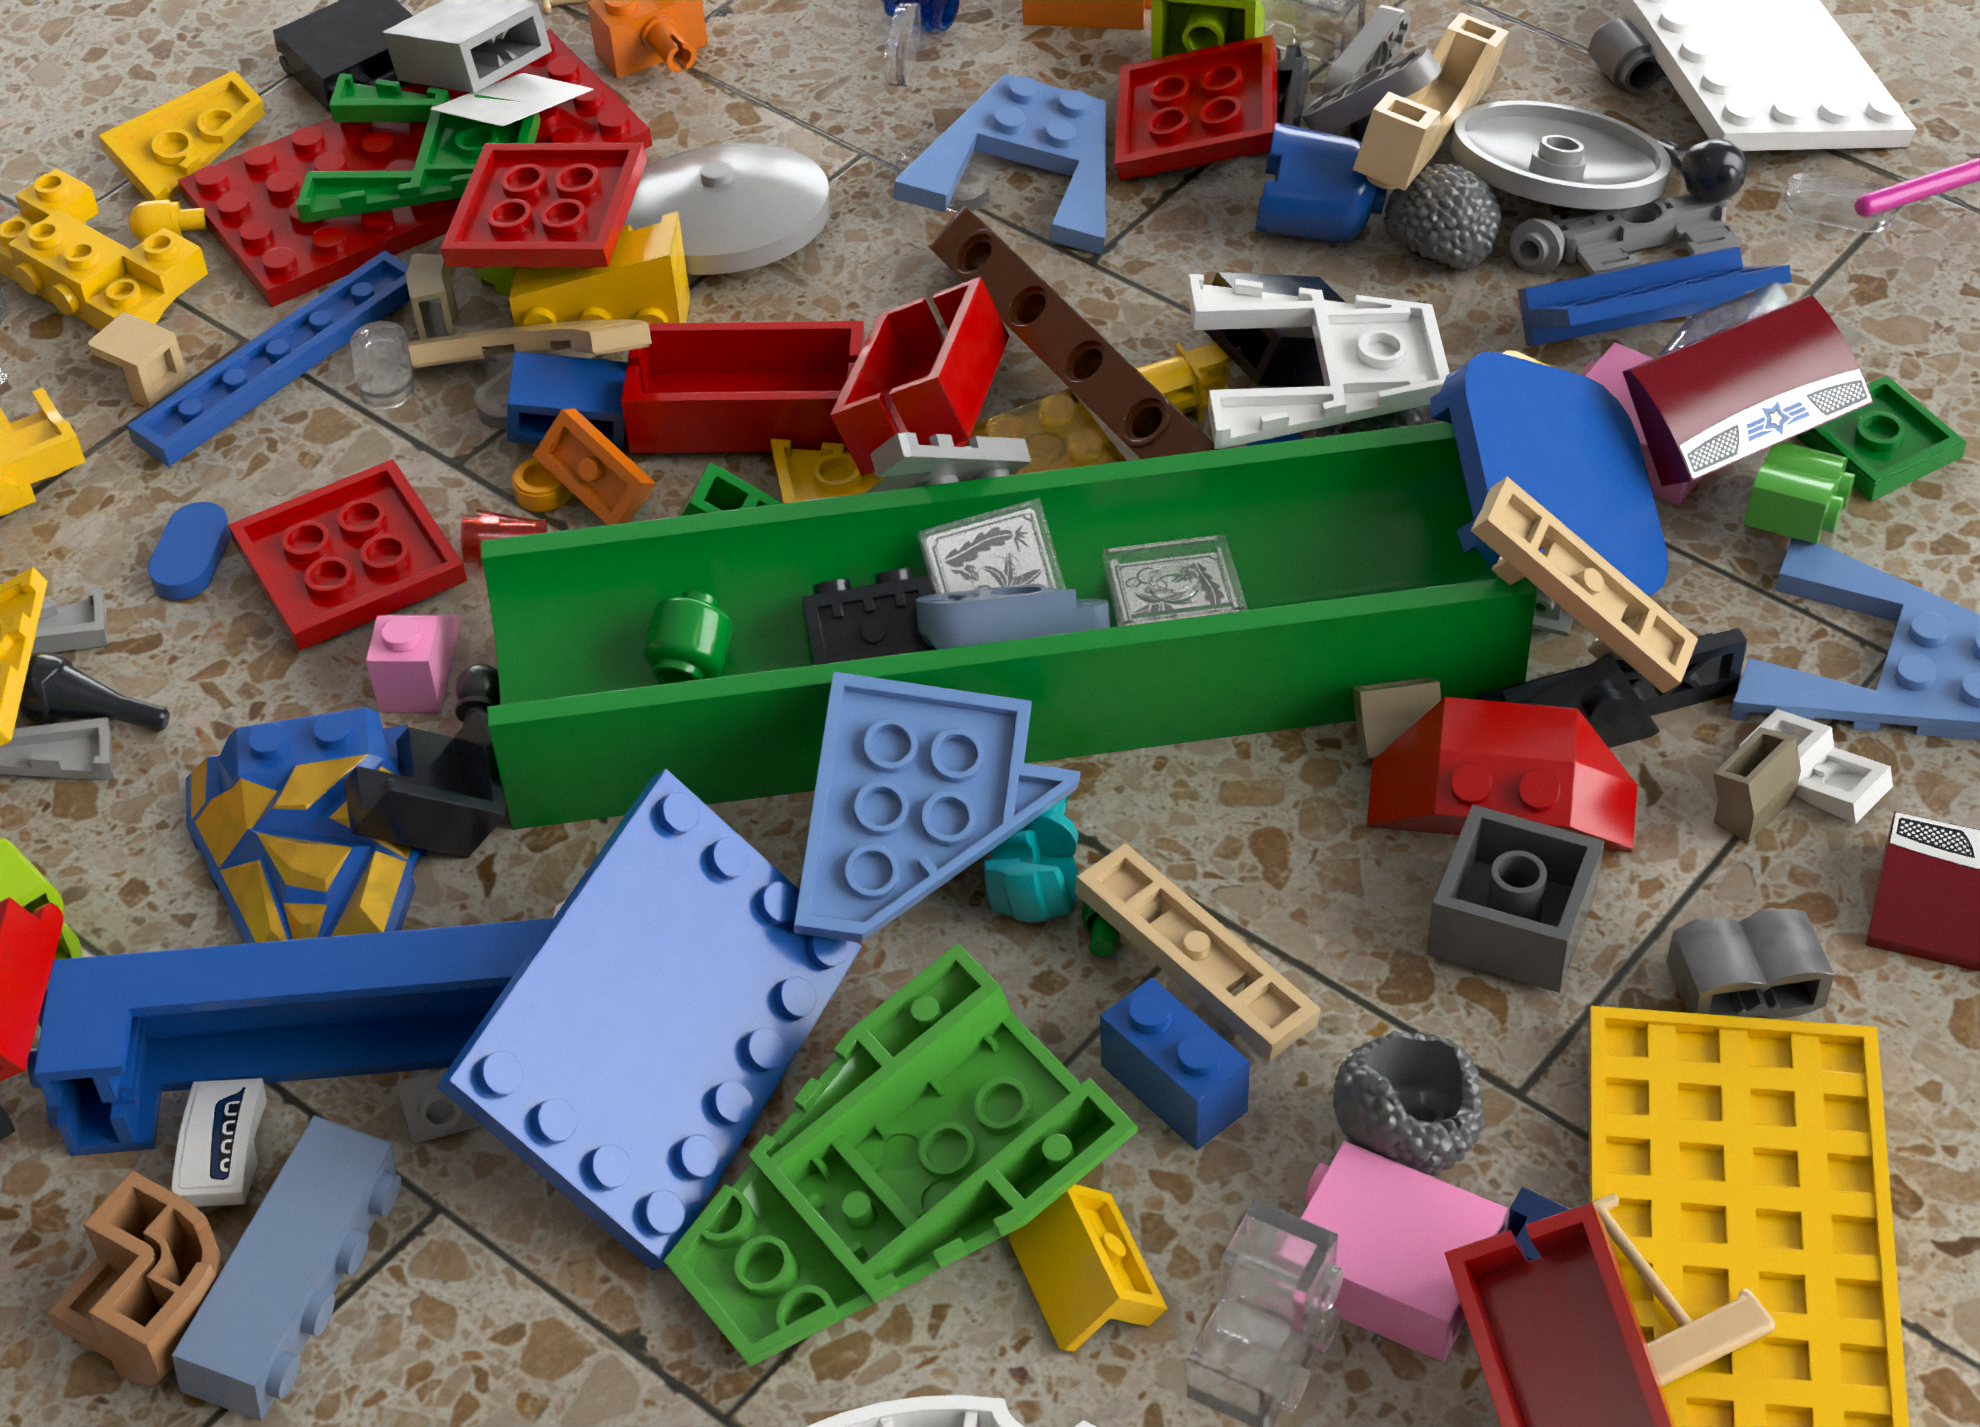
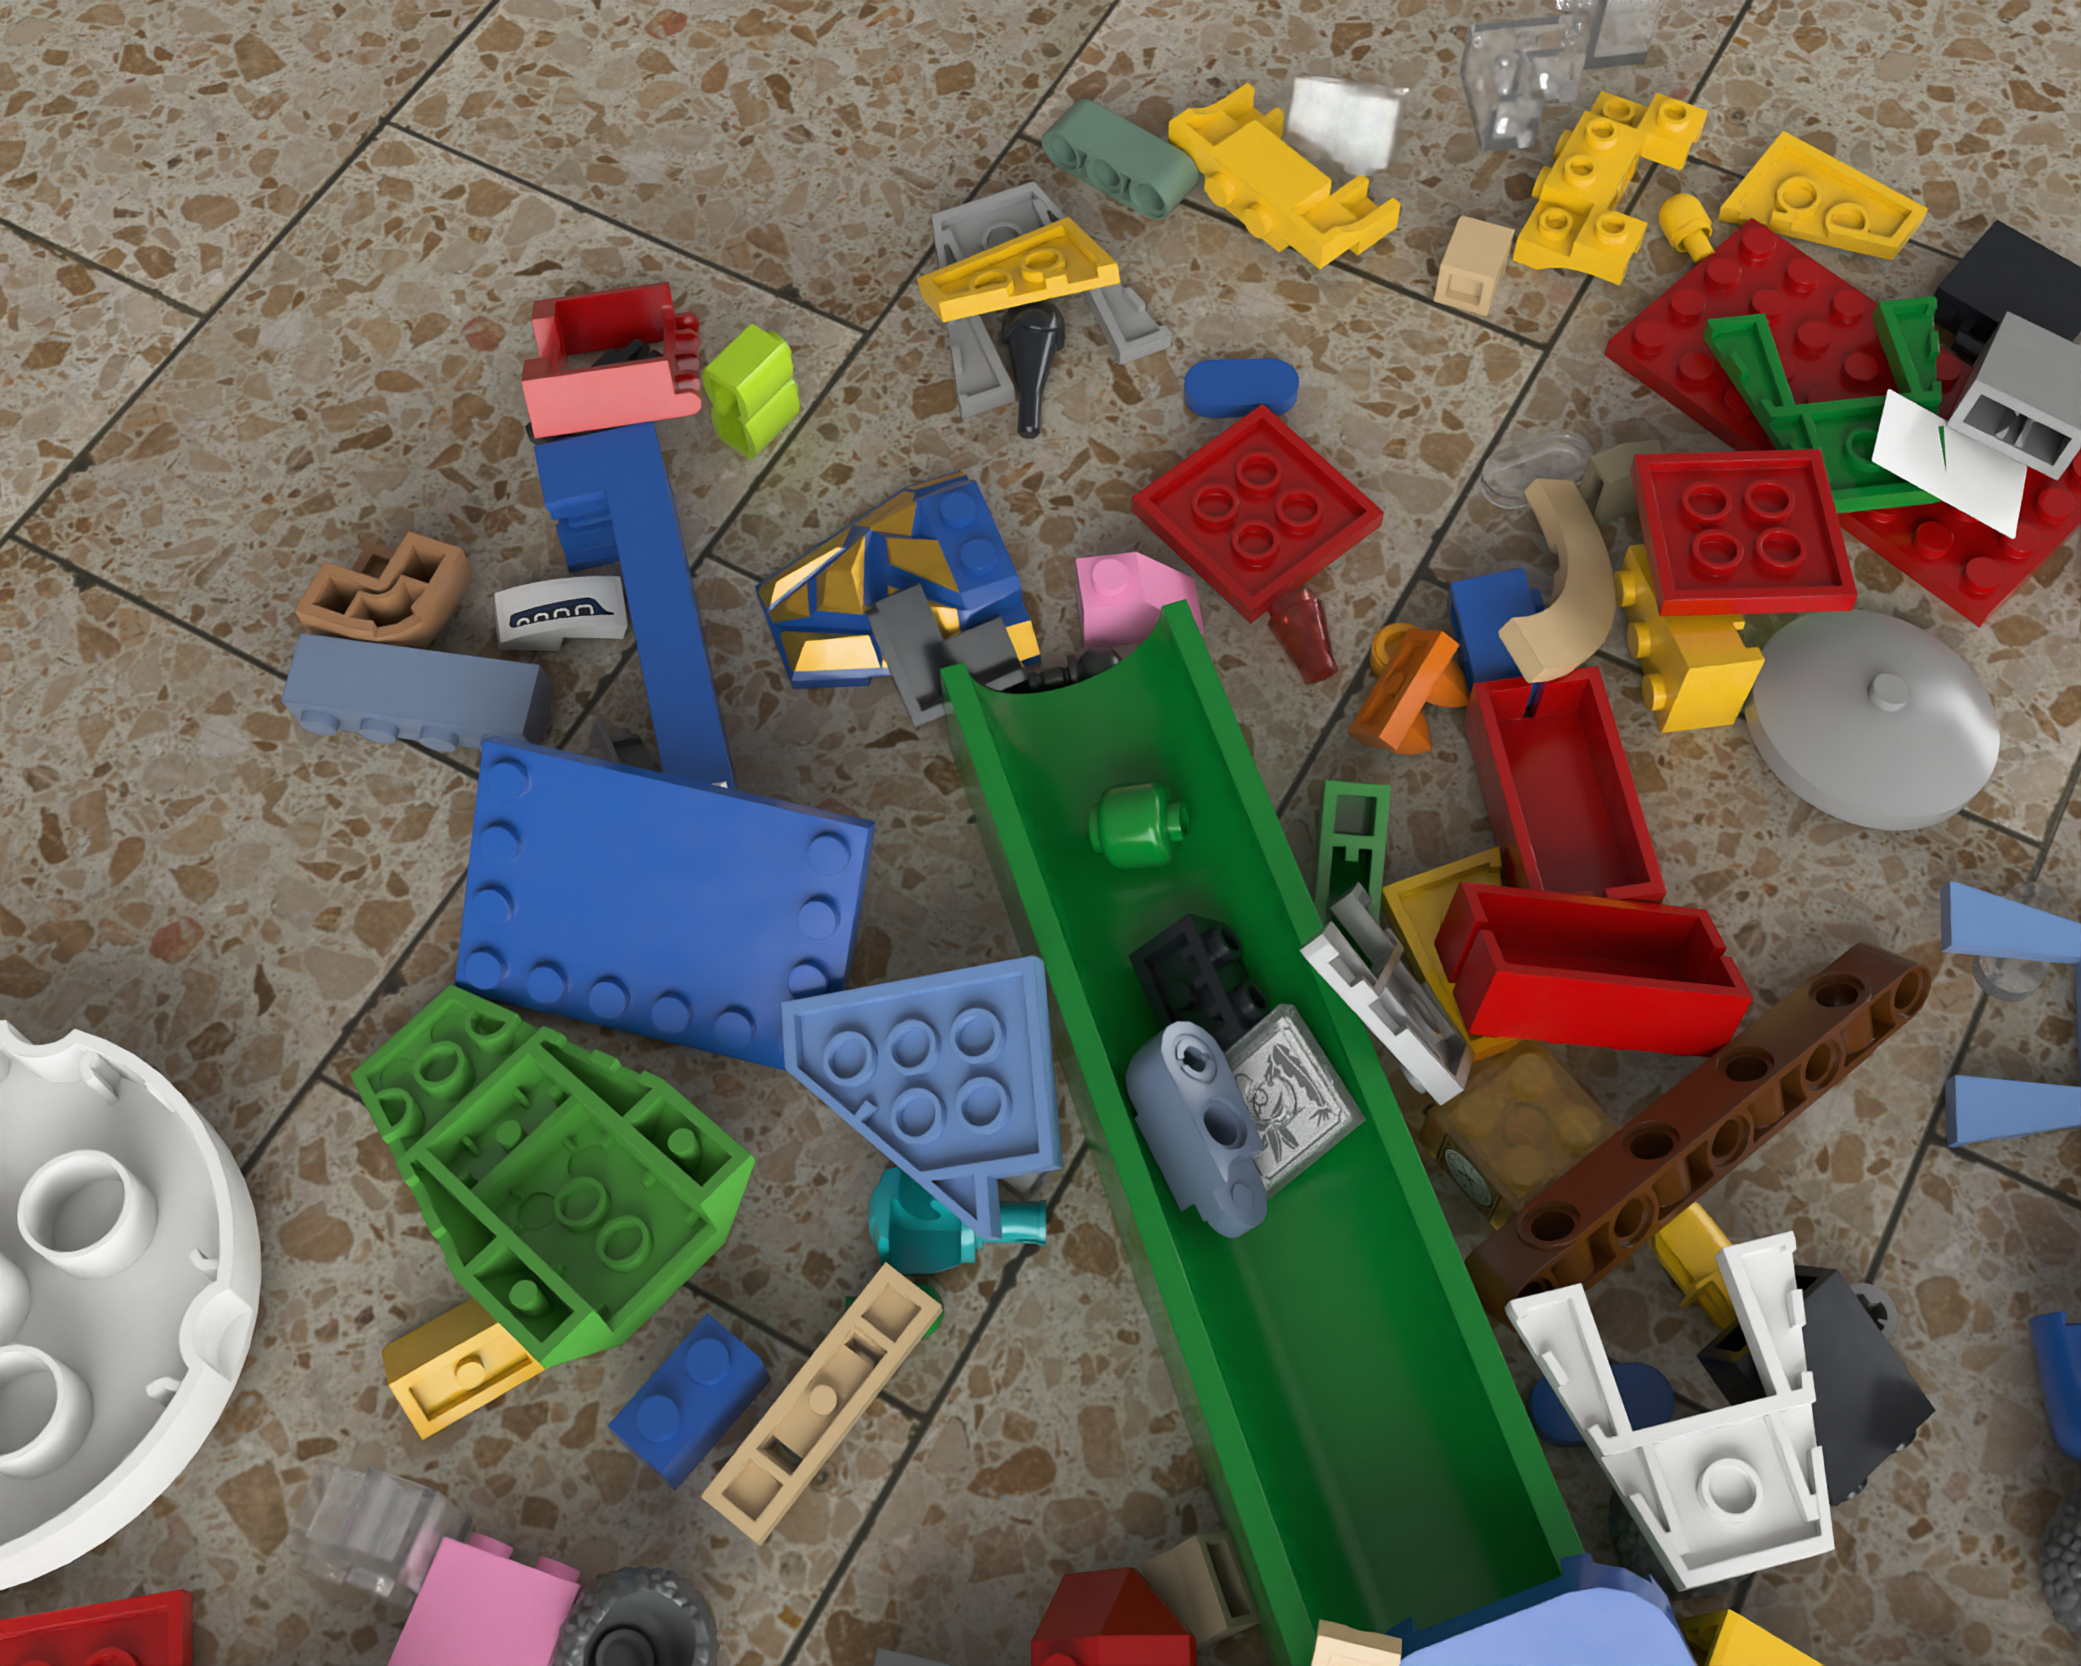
camera: 80 degrees right, 15 degrees up
(271, 360) = (1511, 374): blue plate -> none
(1172, 580) = (1307, 1301): clear tile -> none

